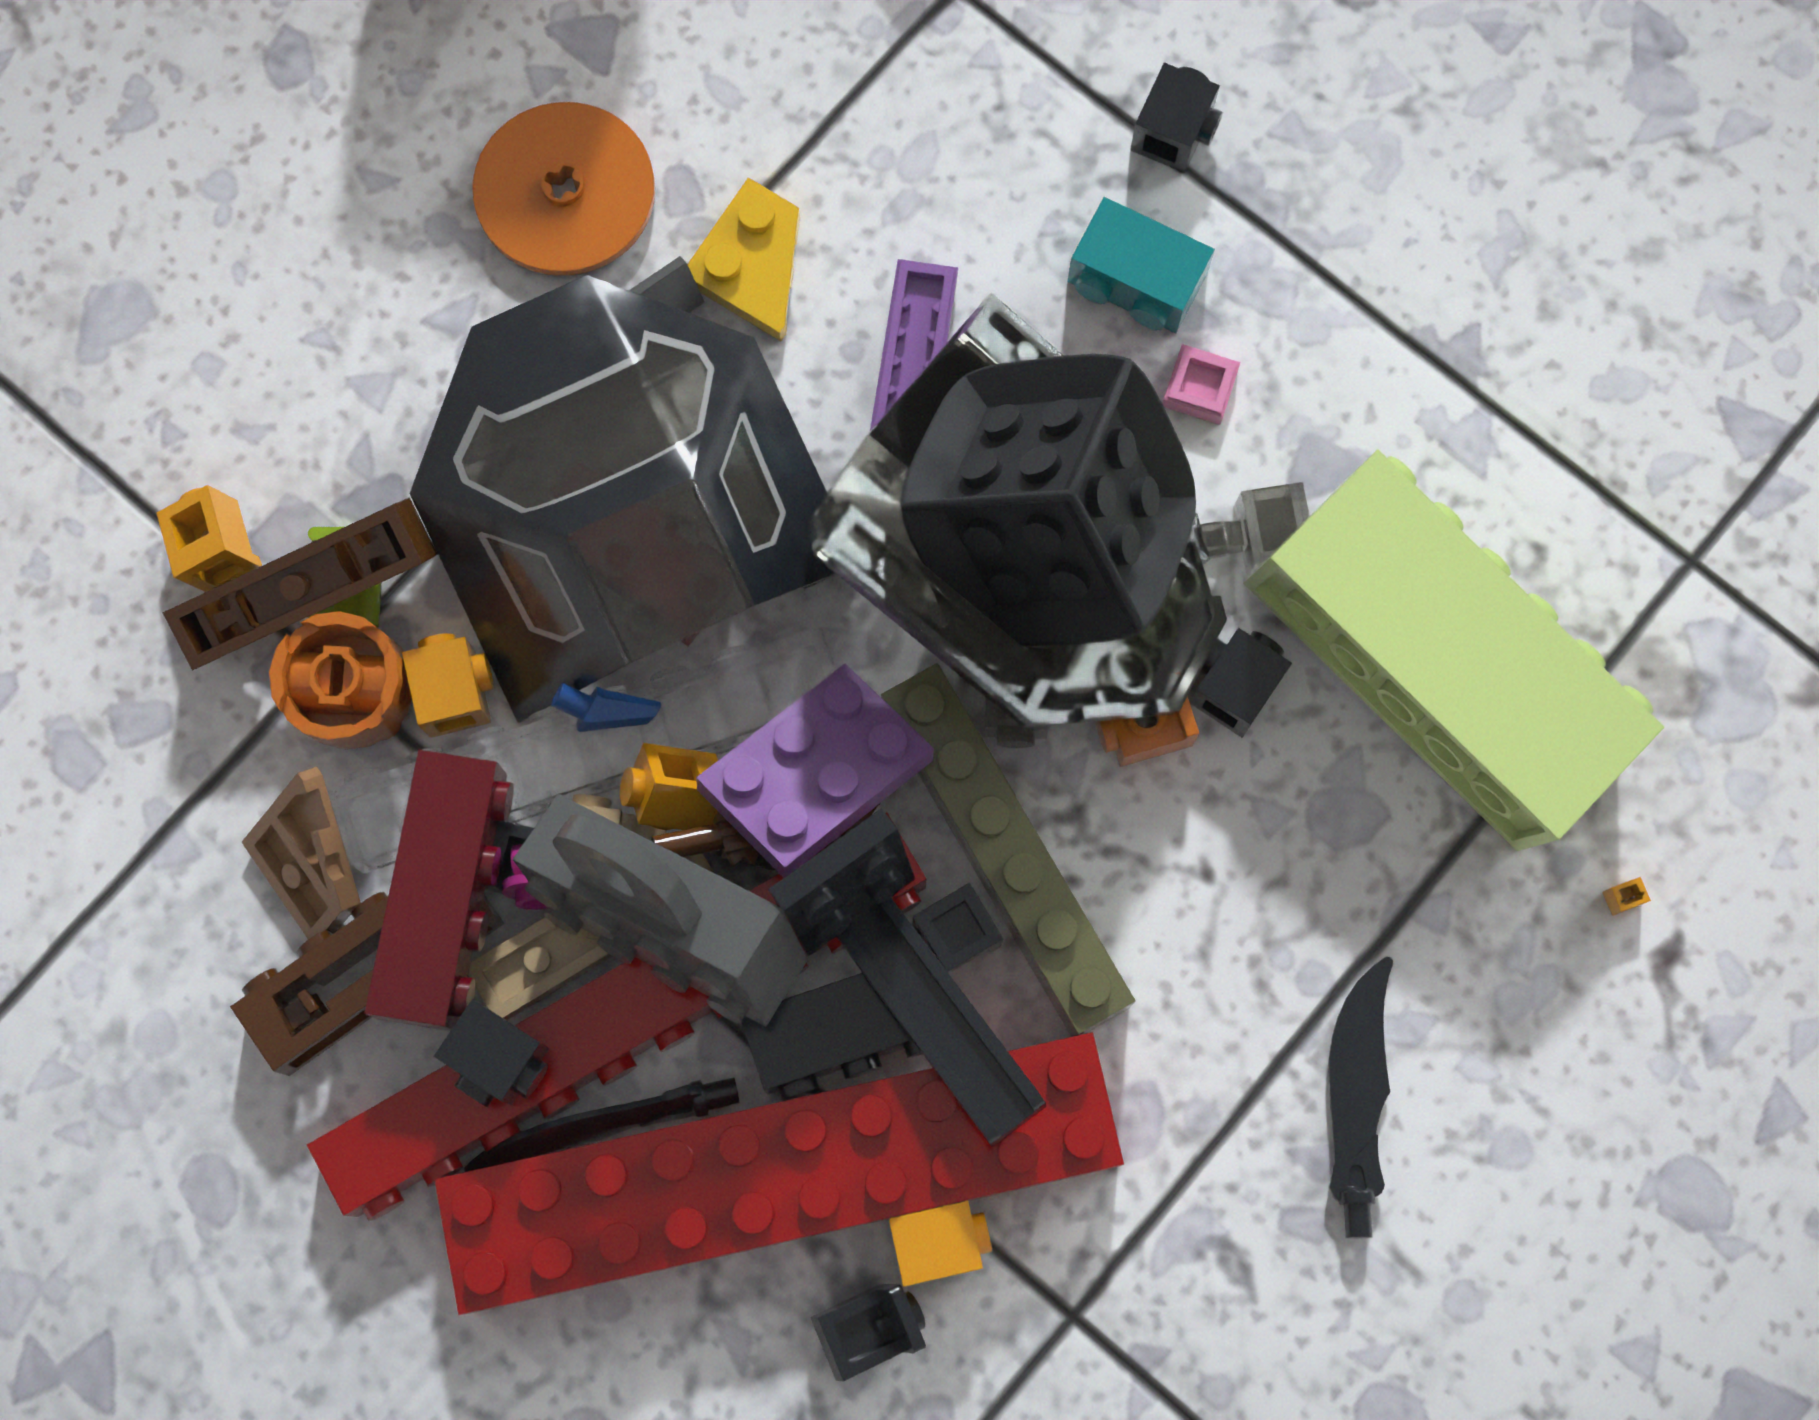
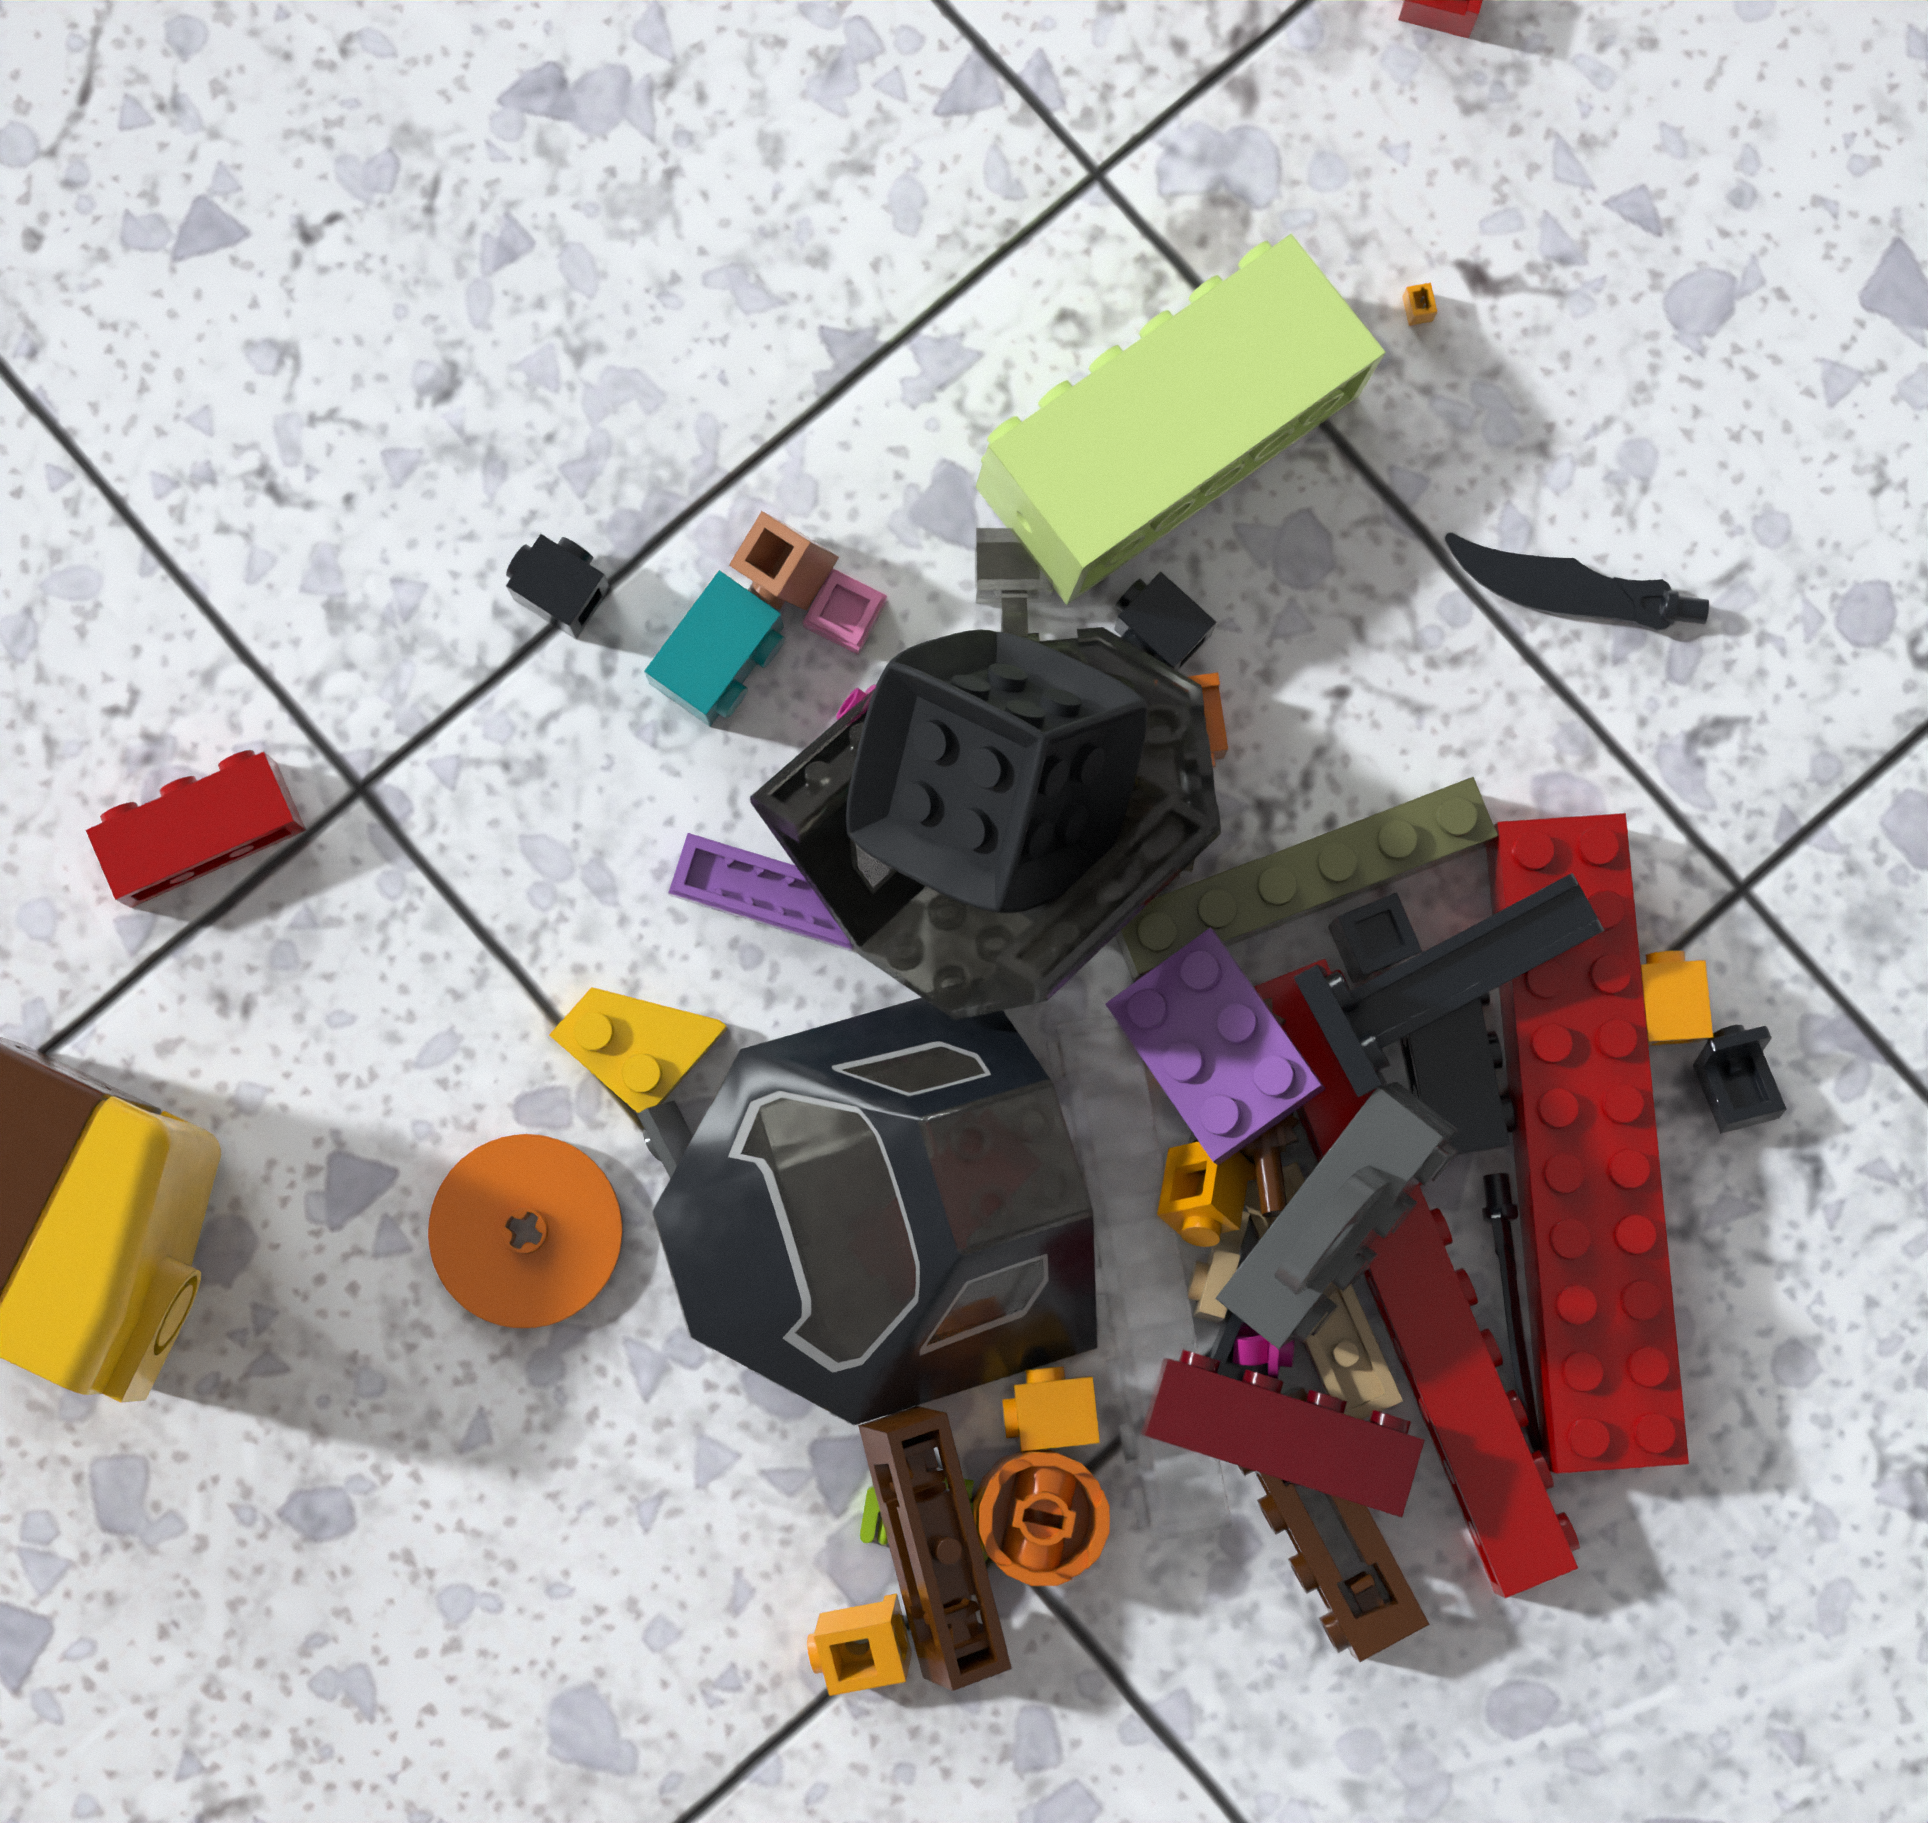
camera: 85 degrees left, 5 degrees up
(305, 856) = (1215, 1574): medium nougat wing -> none
(492, 1056) = (1452, 1399): black brick -> none
(604, 708) = (1115, 1250): blue bar -> none
(1234, 309) = (782, 563): none -> nougat brick

